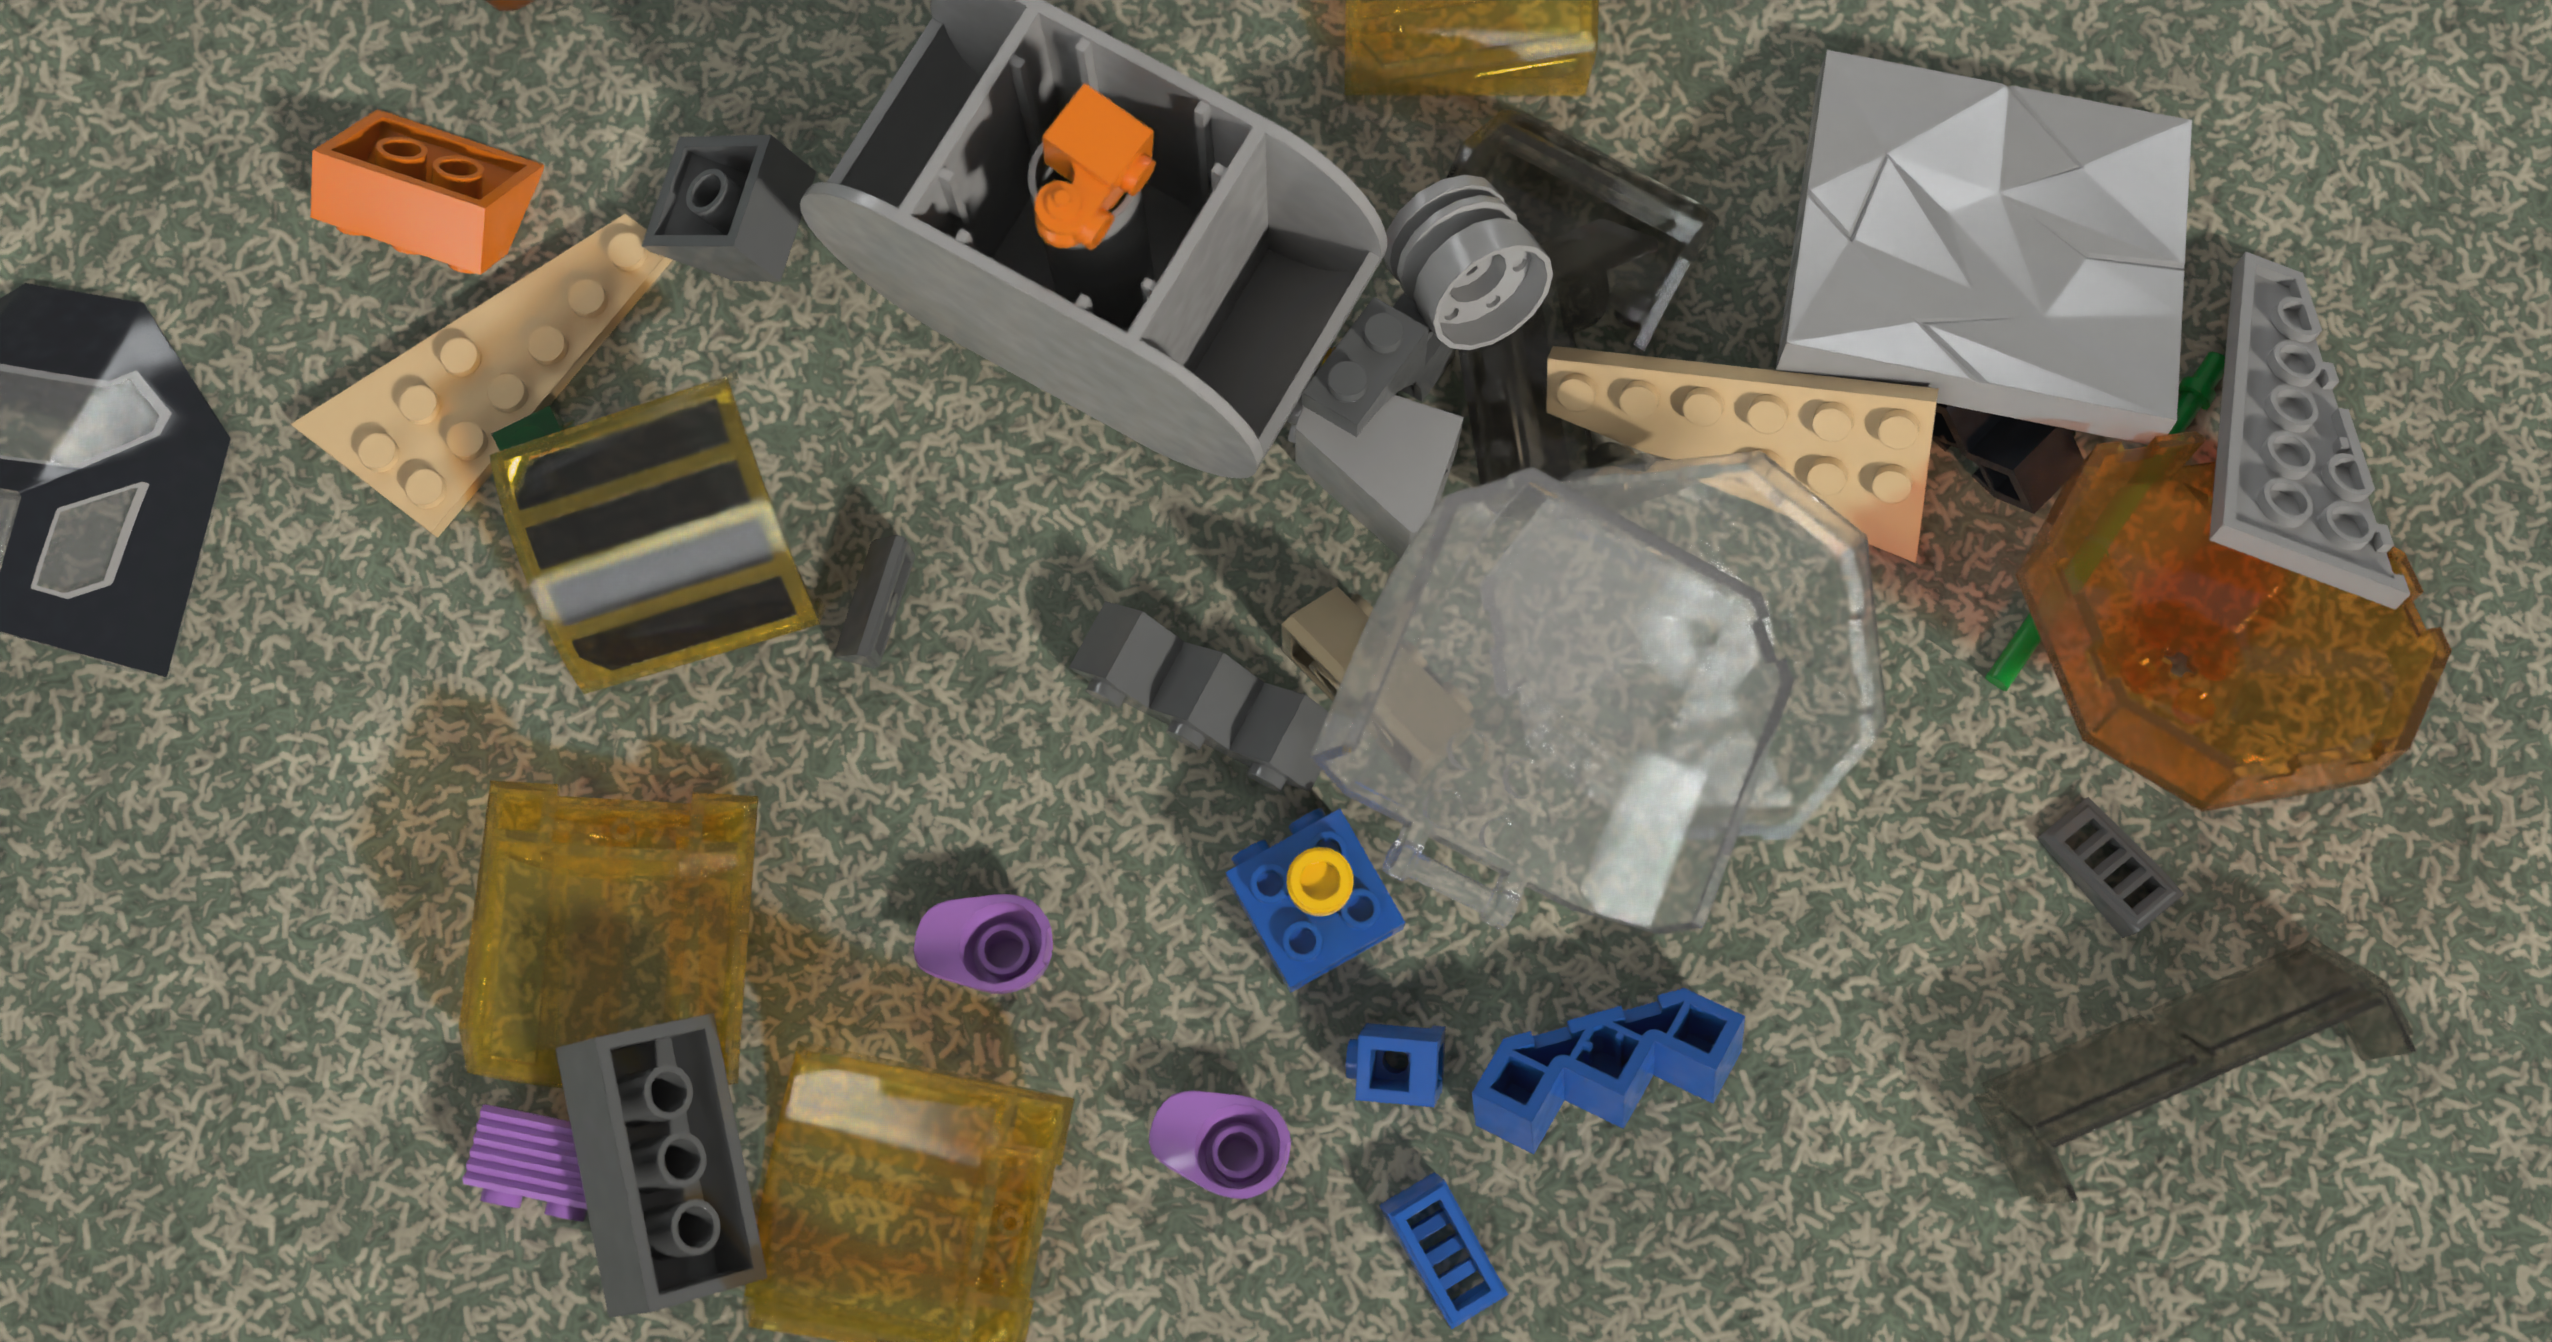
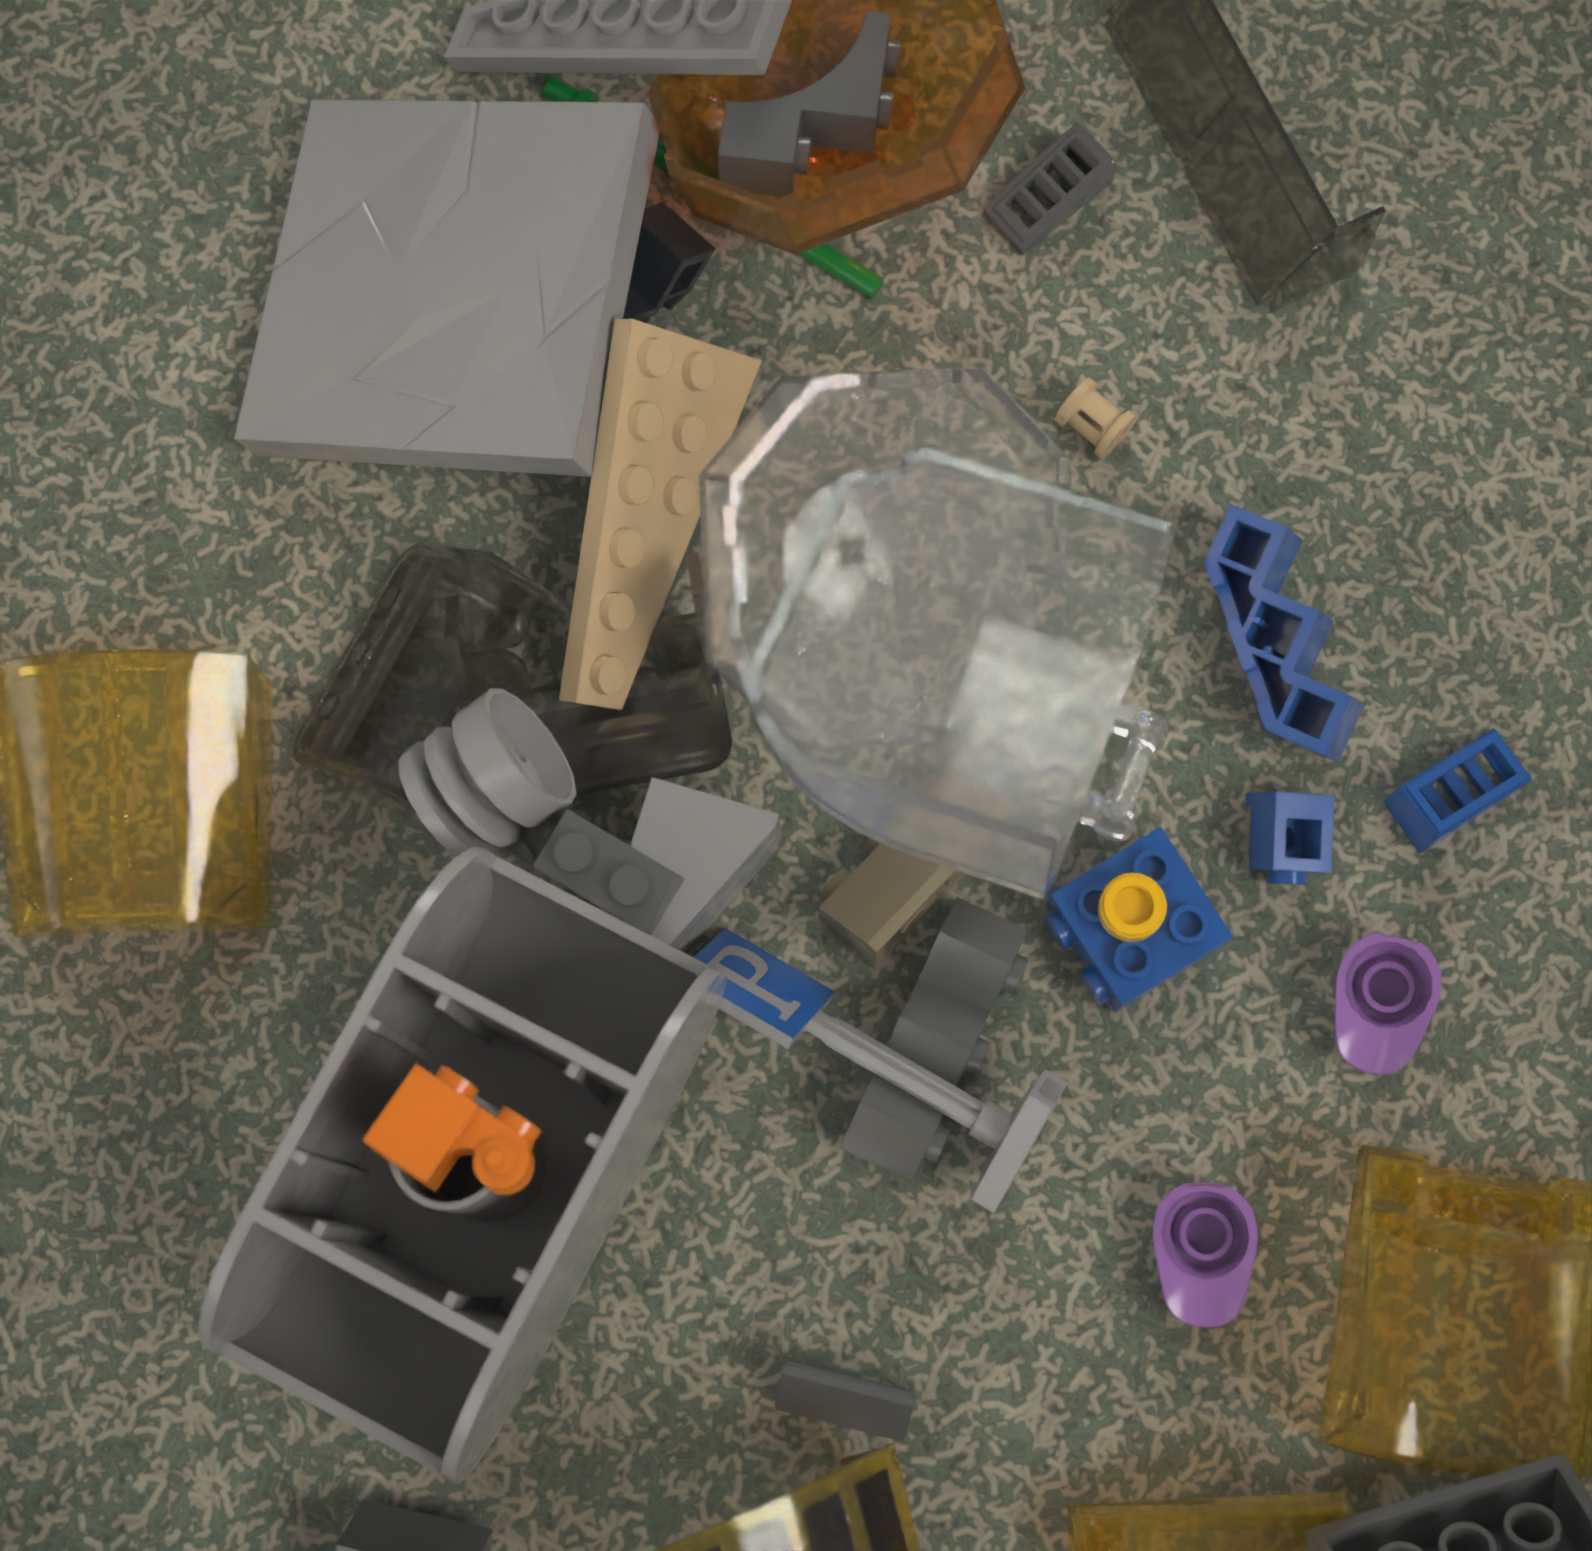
camera: 90 degrees left, 0 degrees up
(1253, 545) = (787, 1002): none -> light grey piece
(1850, 897) = (1095, 418): none -> tan bush
(2144, 558) = (773, 138): none -> dark grey arch

